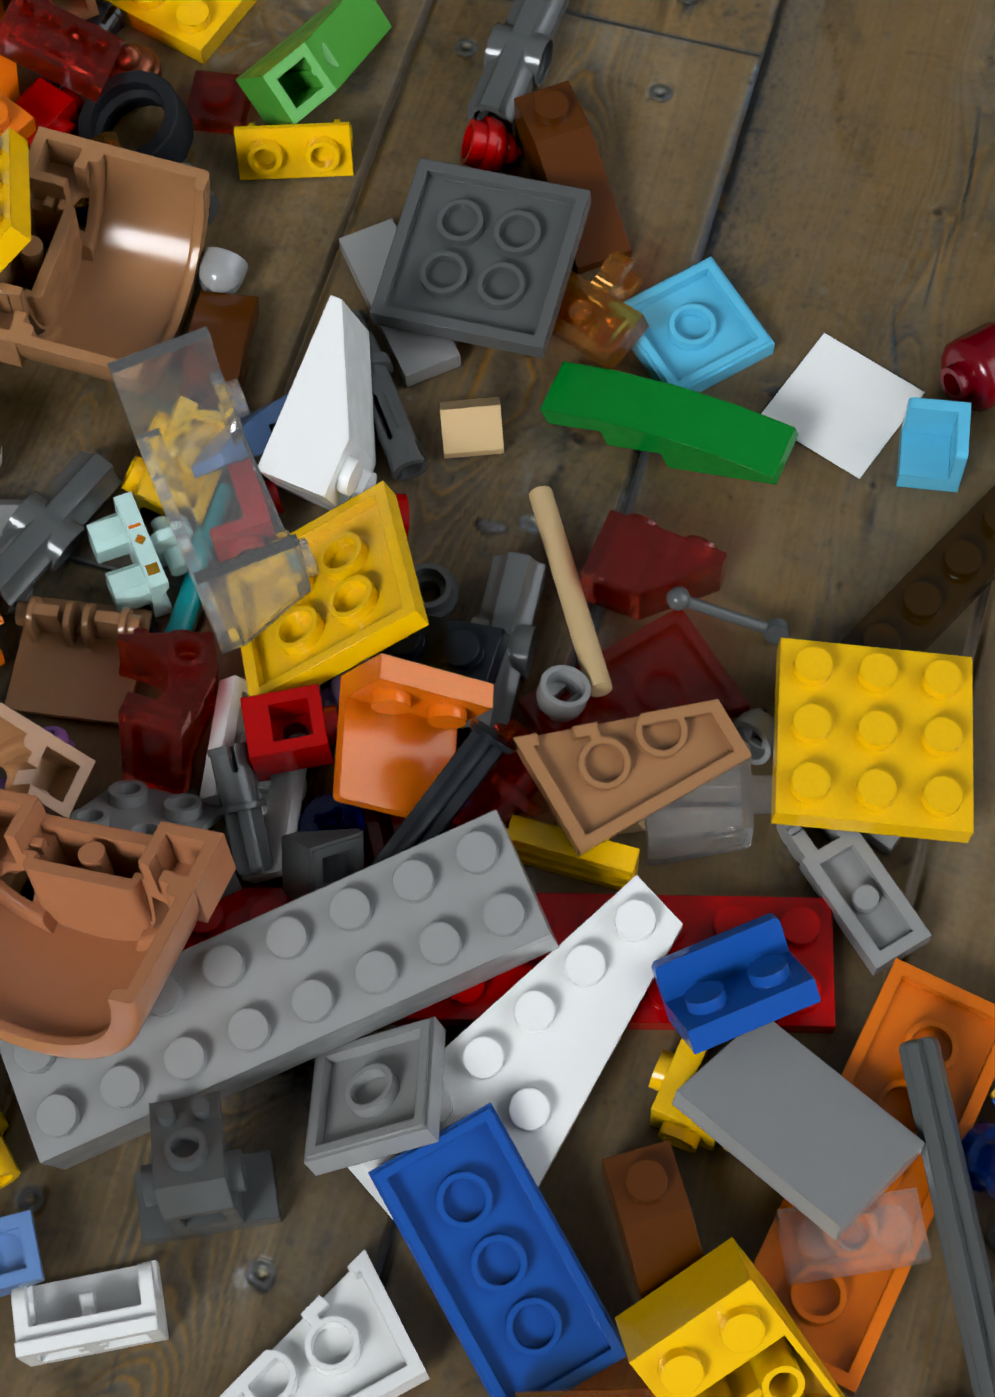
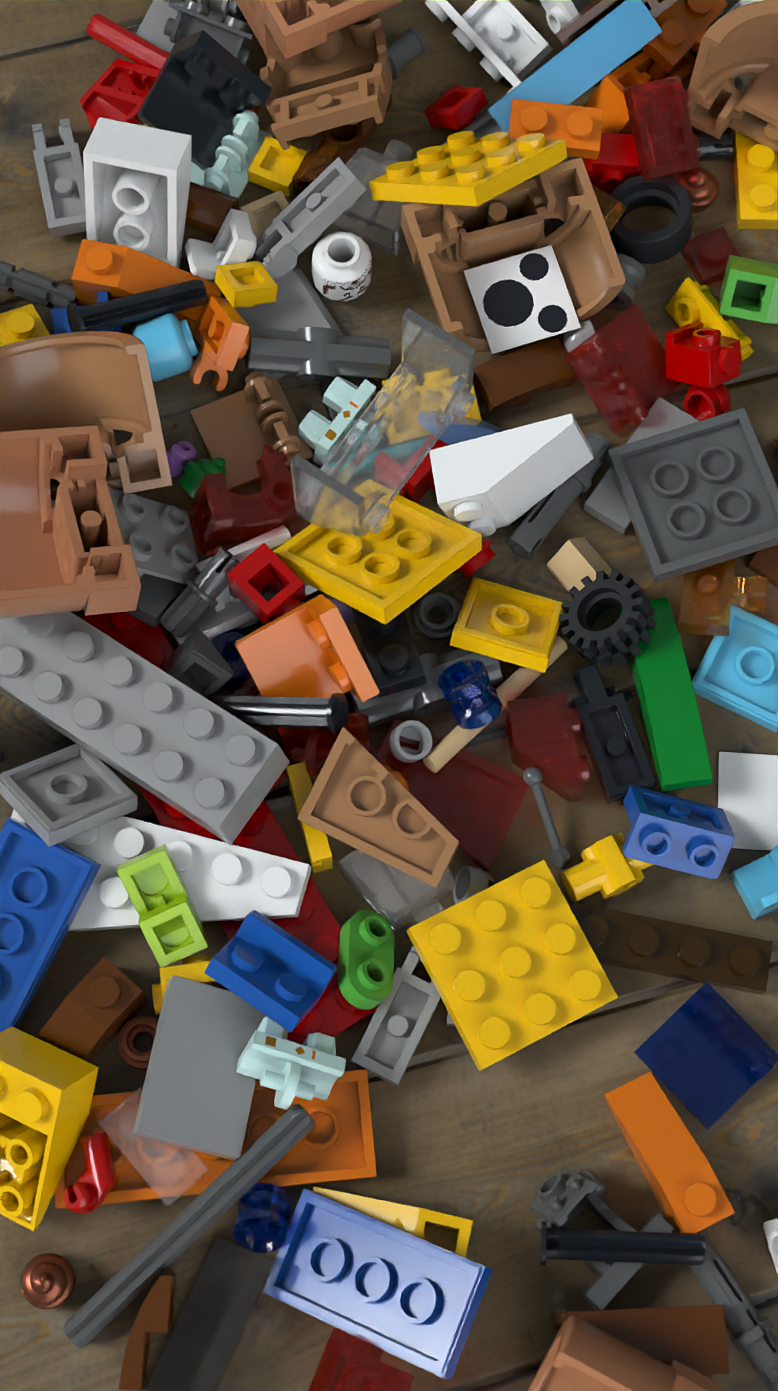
camera: 50 degrees right, 5 degrees up
(97, 733) = (194, 472): none -> green plate
(135, 292) = (521, 299): none -> white sticker
(286, 249) = (622, 369): none -> clear red hinge
(330, 166) = (701, 356): none -> red brick
(377, 196) = (707, 403): none -> red plate
(492, 524) = (507, 624): none -> yellow tile
(522, 416) = (594, 600): none -> black tyre
(552, 599) = (471, 697): none -> clear blue wheel
(583, 1060) = (163, 906): none -> lime slope
(680, 501) = (610, 736): none -> black hinge
(722, 1166) = (128, 1036): none -> copper plate
(773, 884) = (366, 949): none -> bright green plate
(821, 582) = (603, 870): none -> yellow axle
(829, 497) = (676, 833): none -> blue bracket
(852, 1321) = (96, 1179): none -> red arm
(858, 1026) = (291, 1067): none -> light aqua hips

